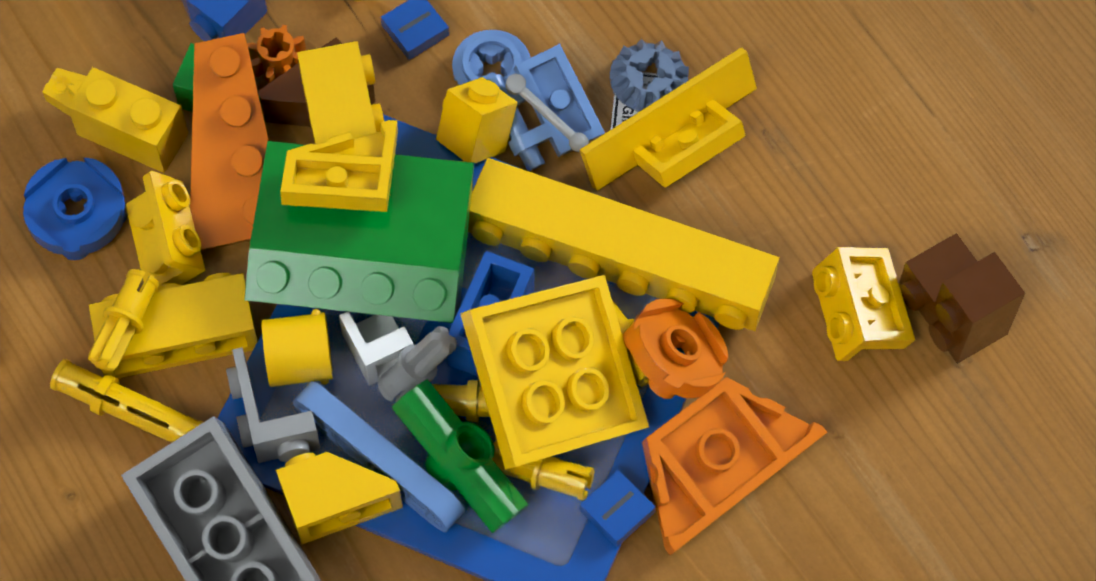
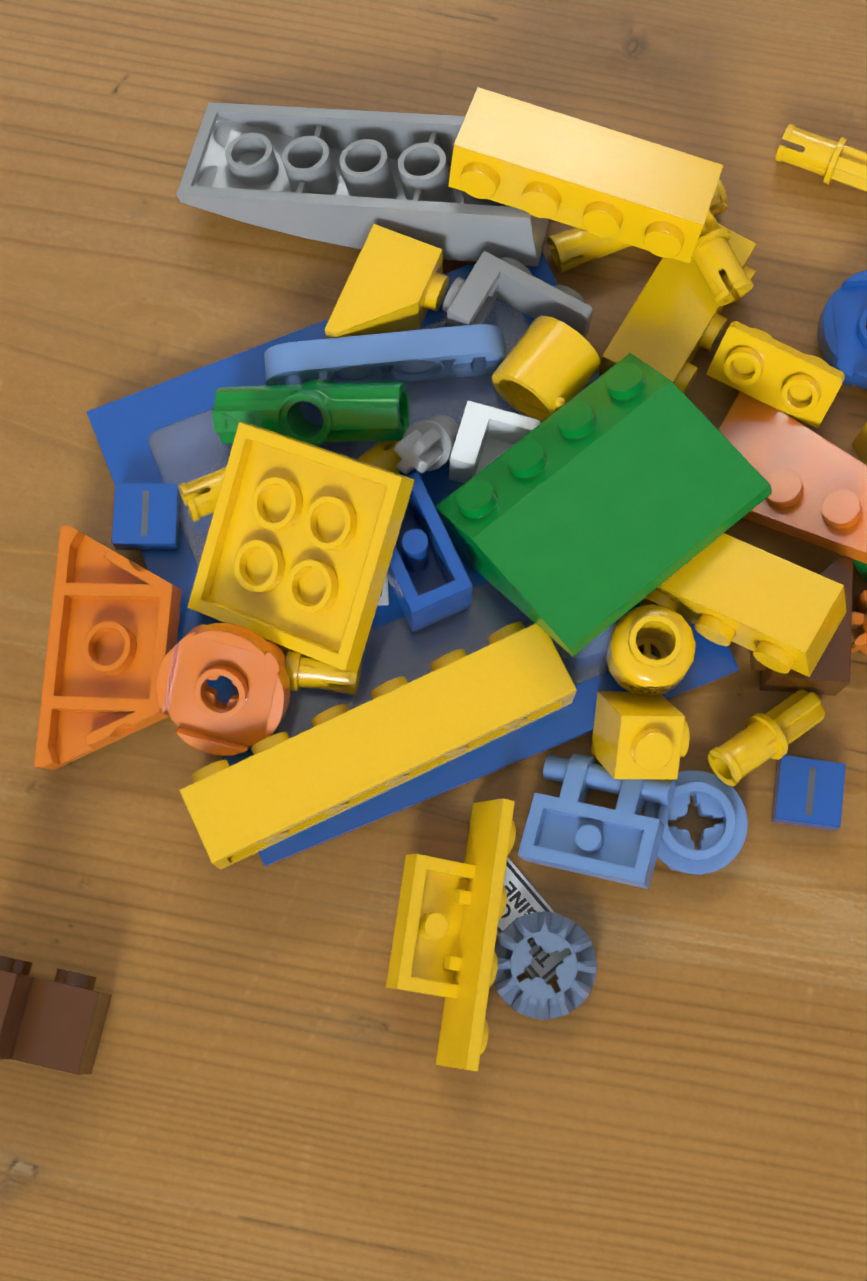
camera: 135 degrees right, 10 degrees up
(160, 397) = (583, 175): none -> yellow brick
(342, 172) = (665, 510): yellow wing -> none
(412, 65) = (766, 736): none -> yellow axle
(425, 135) = (654, 630): none -> yellow head
(517, 86) = (636, 799): light grey hinge -> none
(861, 301) = (116, 927): yellow bracket -> none

